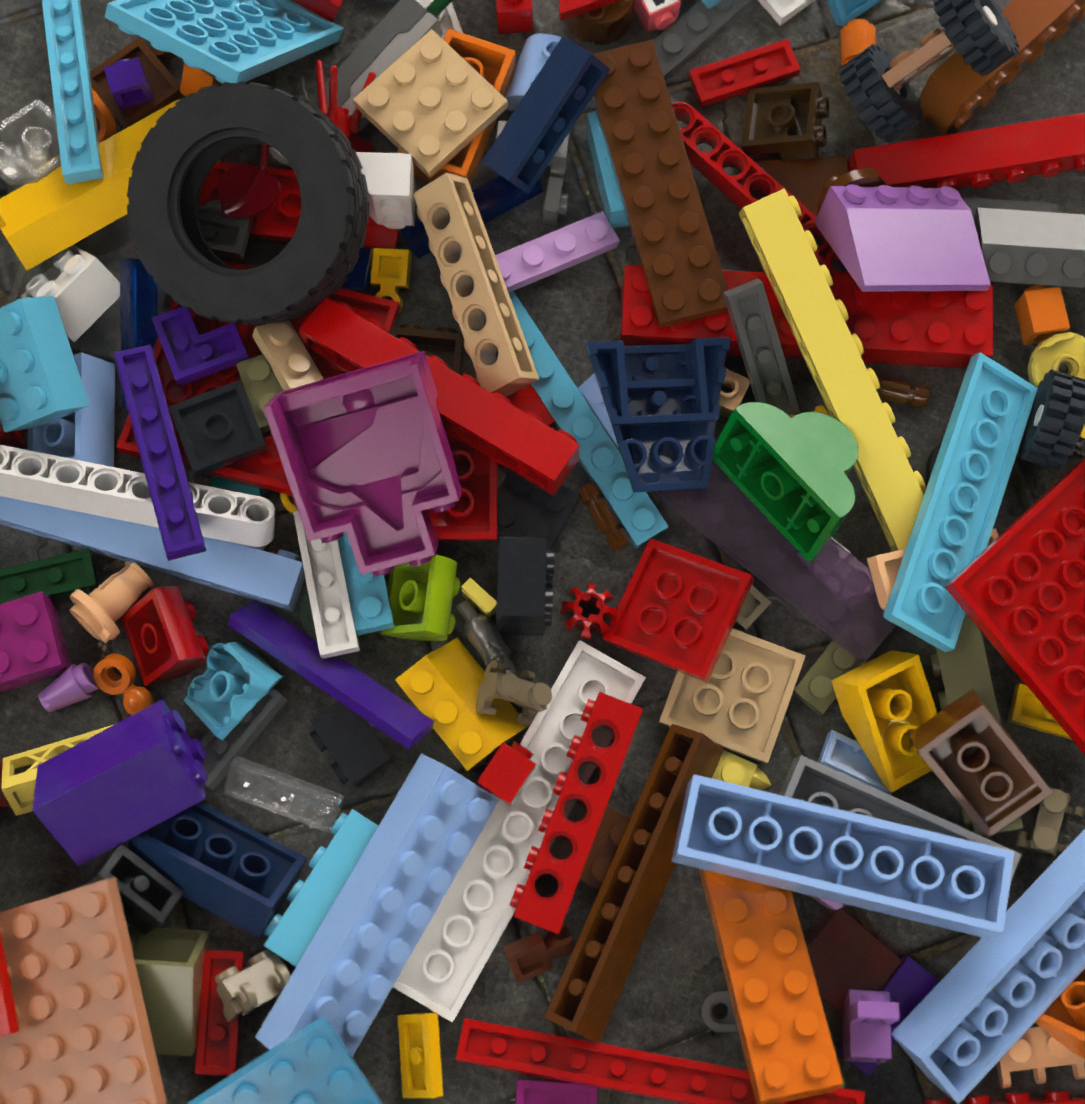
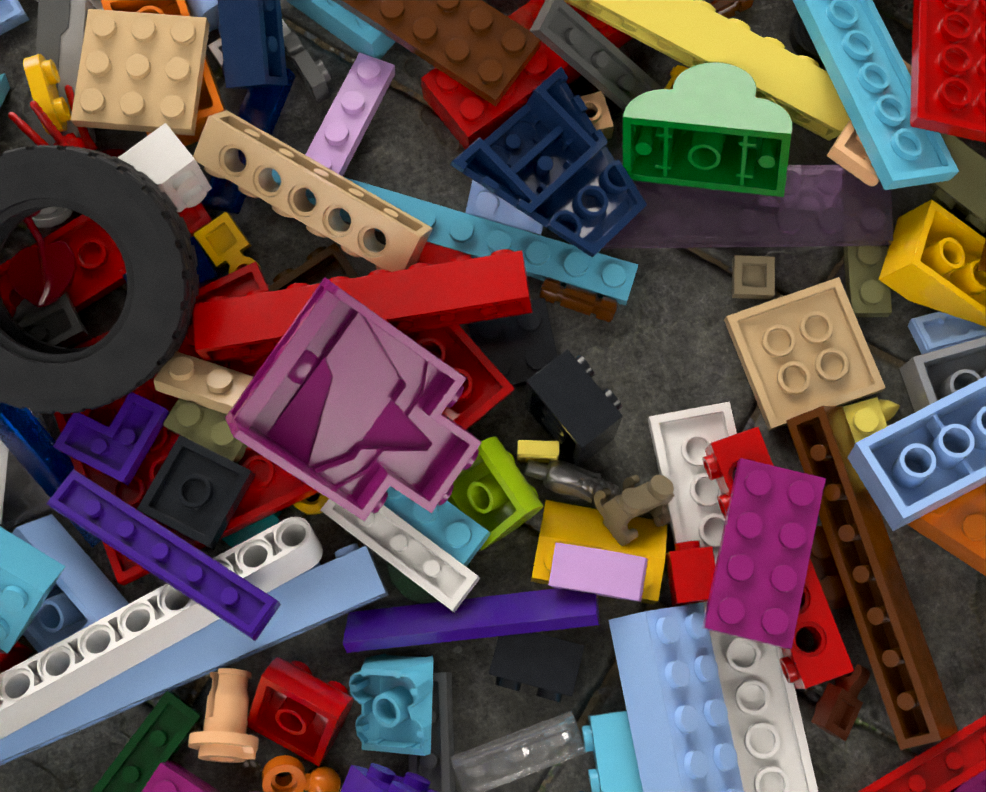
camera: 35 degrees left, 0 degrees up
(356, 56) = (42, 81): none -> yellow plate
(440, 713) = (598, 572): none -> lavender slope
(566, 798) = (764, 554): none -> magenta plate
(593, 621) = (643, 377): red piece -> none
(679, 609) = (709, 323): red plate -> none

